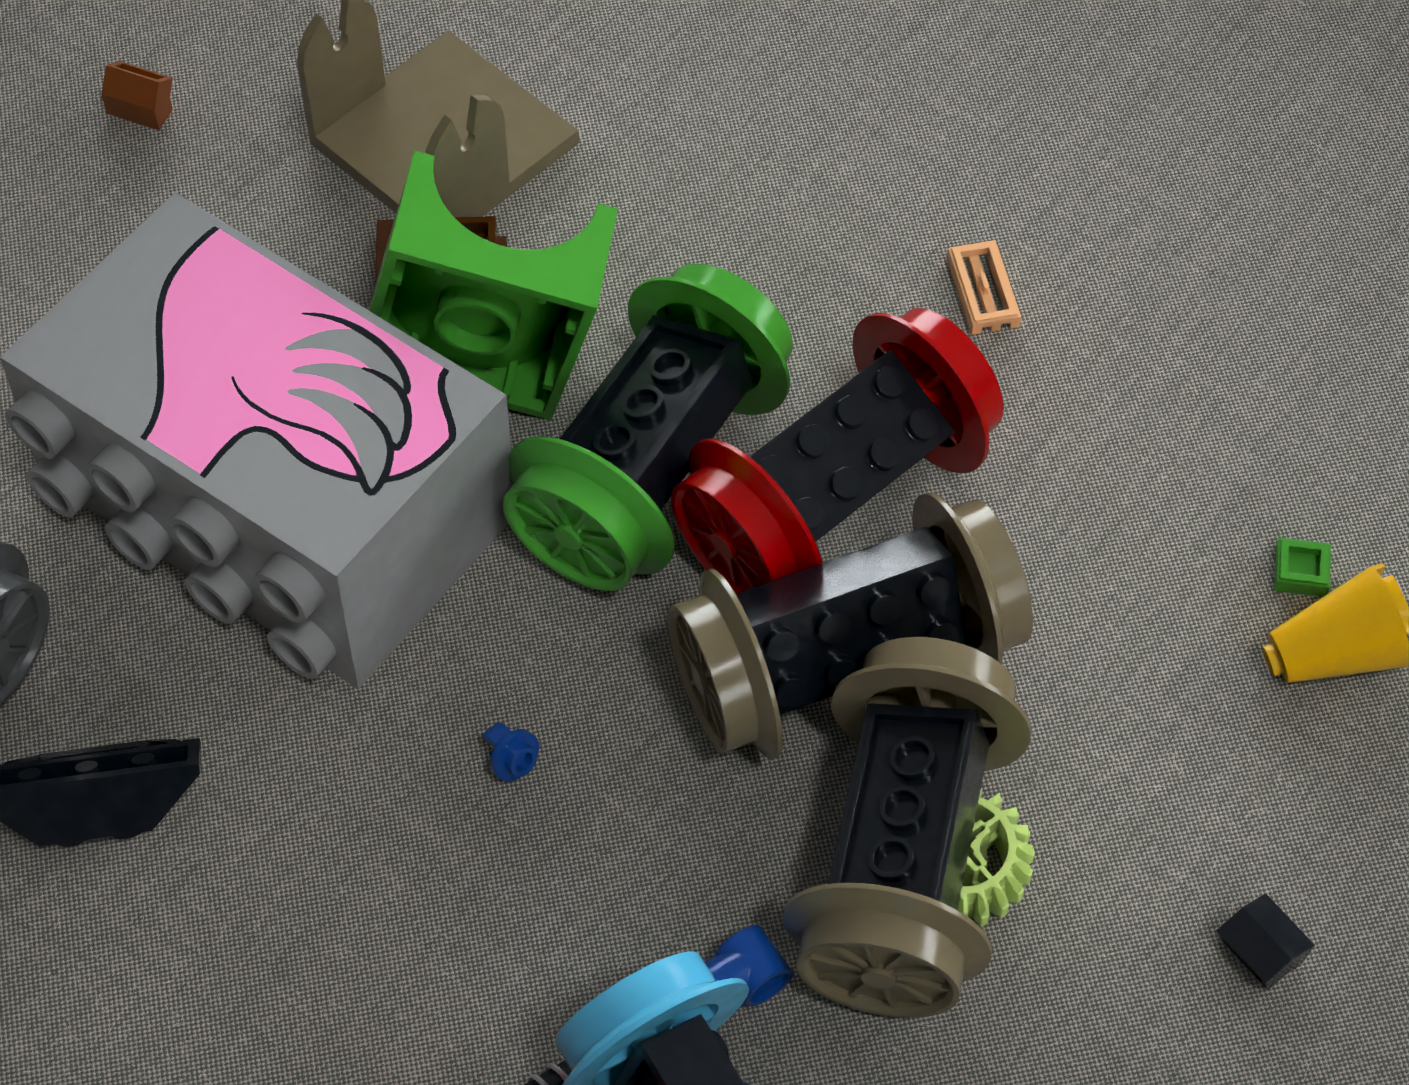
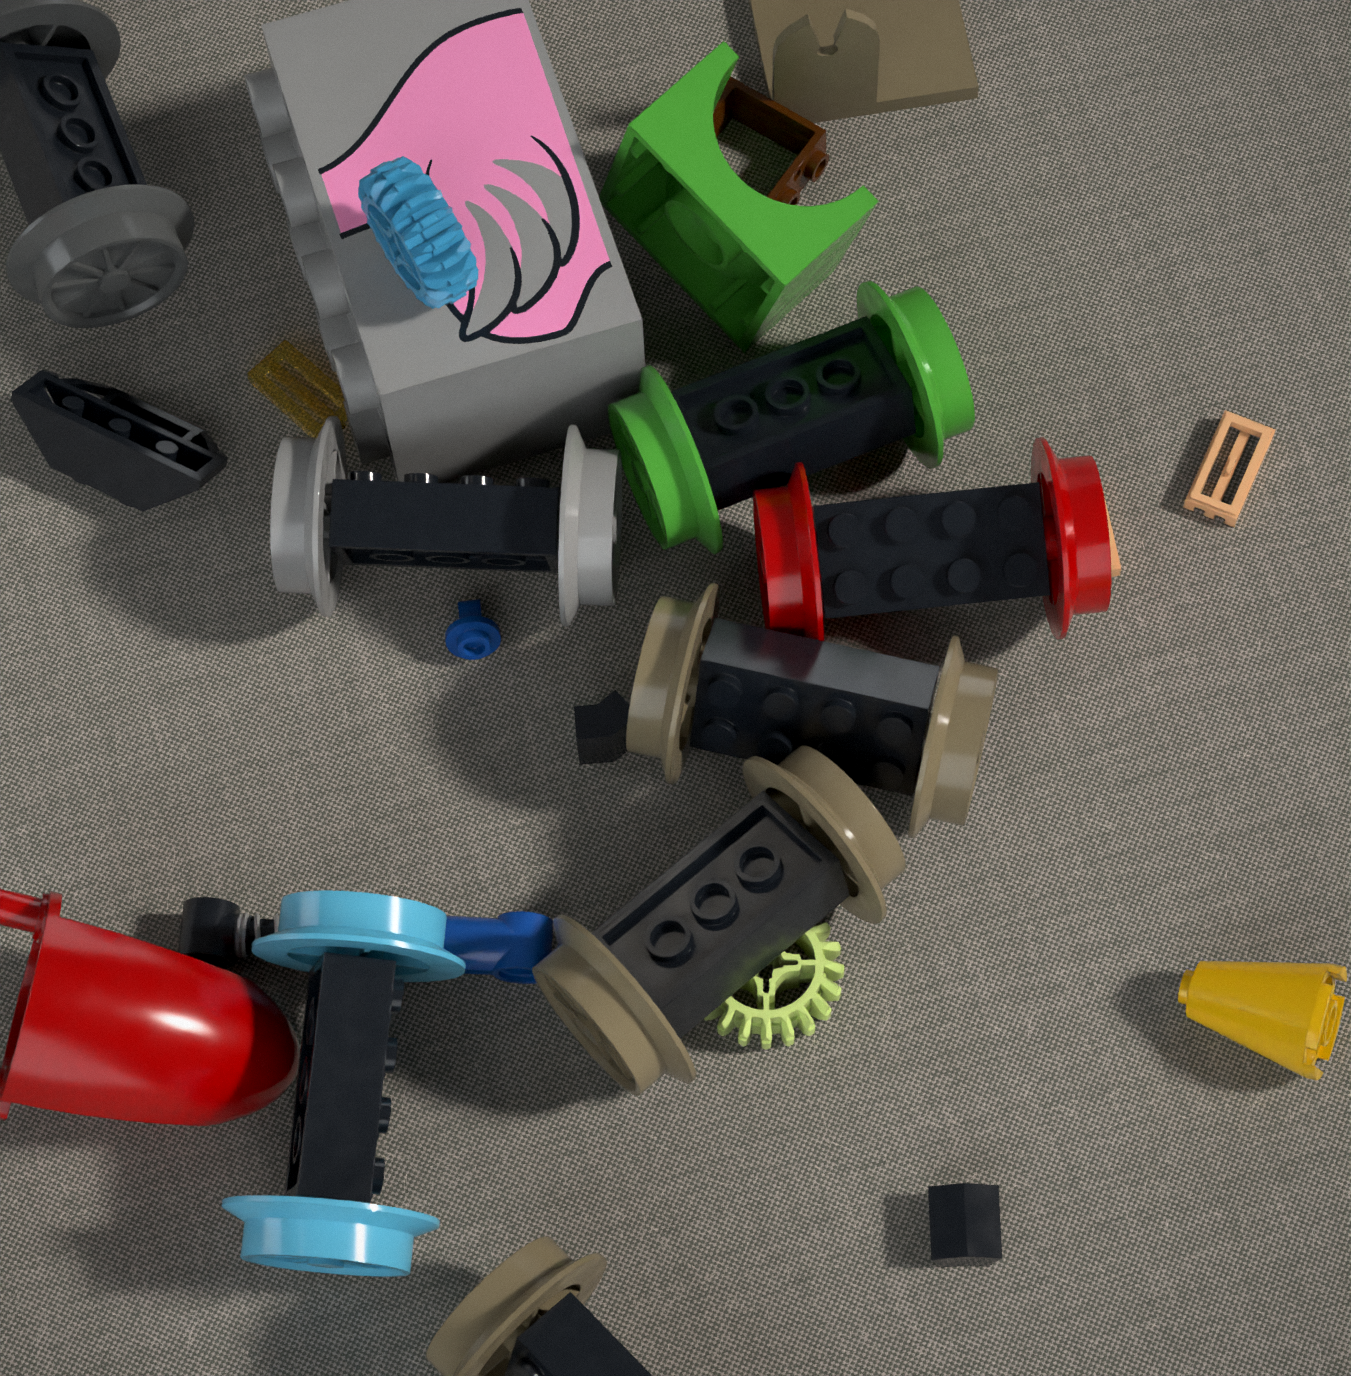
camera: 40 degrees right, 10 degrees up
(210, 667) = (282, 401): none -> clear yellow tile
(284, 420) = (418, 232): none -> dark azure gear
(535, 613) = (336, 521): none -> brick
(681, 756) = (602, 730): none -> black piece
(1302, 567) = (1297, 921): bright green tile -> none

